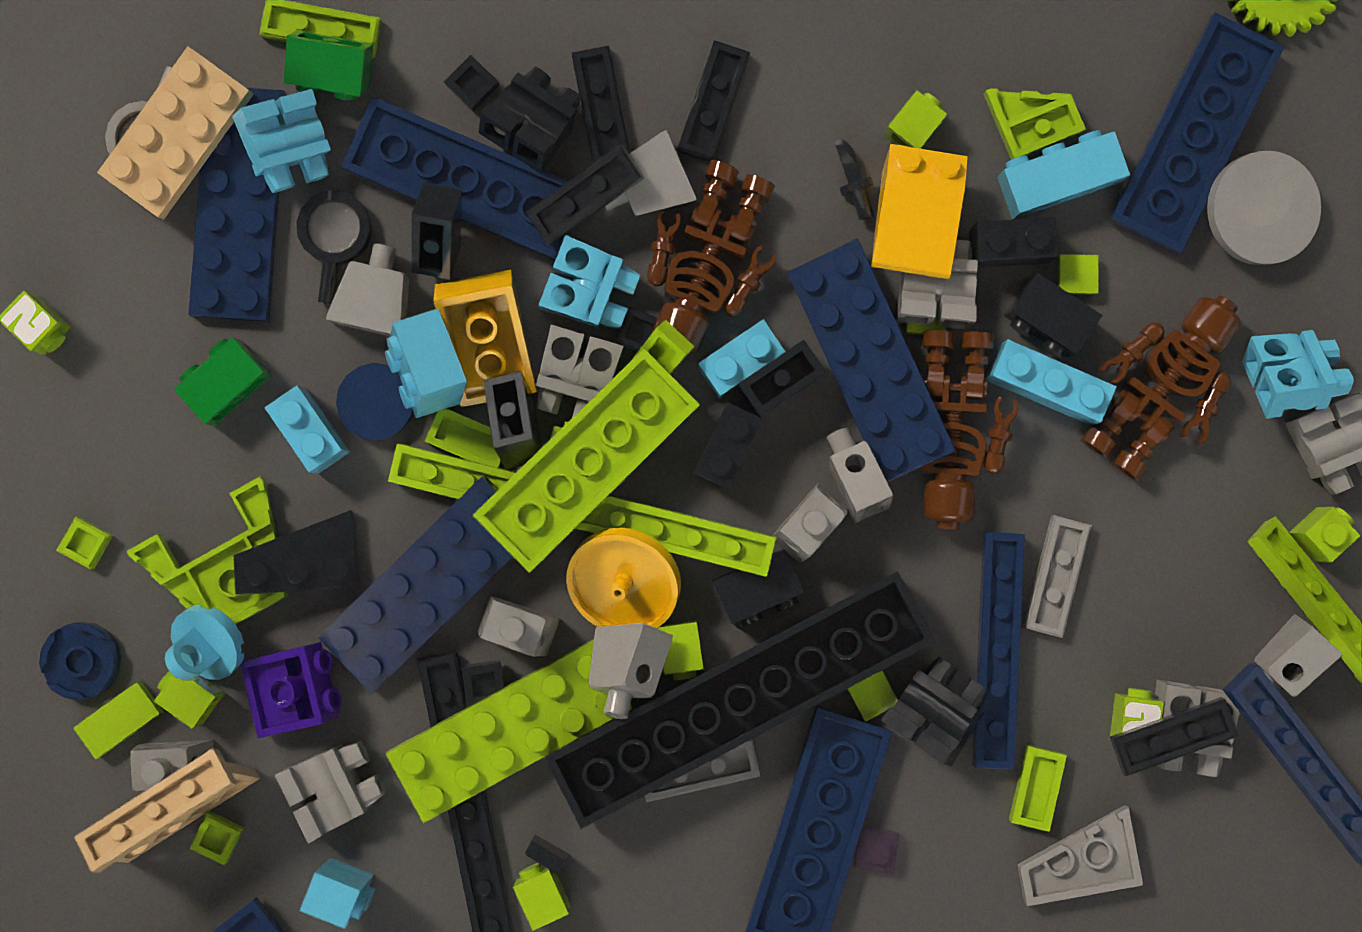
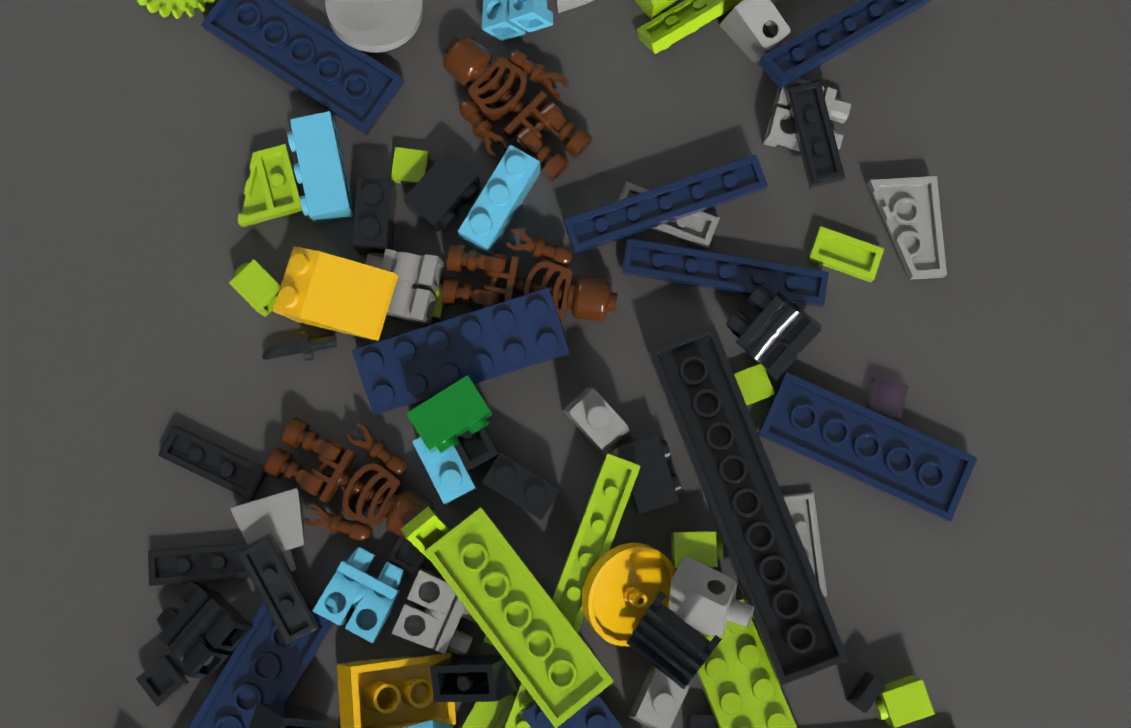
camera: 80 degrees left, 5 degrees down
(577, 630) = (671, 643): none -> black plate
(797, 358) = (450, 415): none -> green brick
(864, 491) = (575, 372): light grey torso -> none
(1069, 573) = (665, 204): none -> dark blue plate
(1134, 710) = (788, 165): lime brick -> none

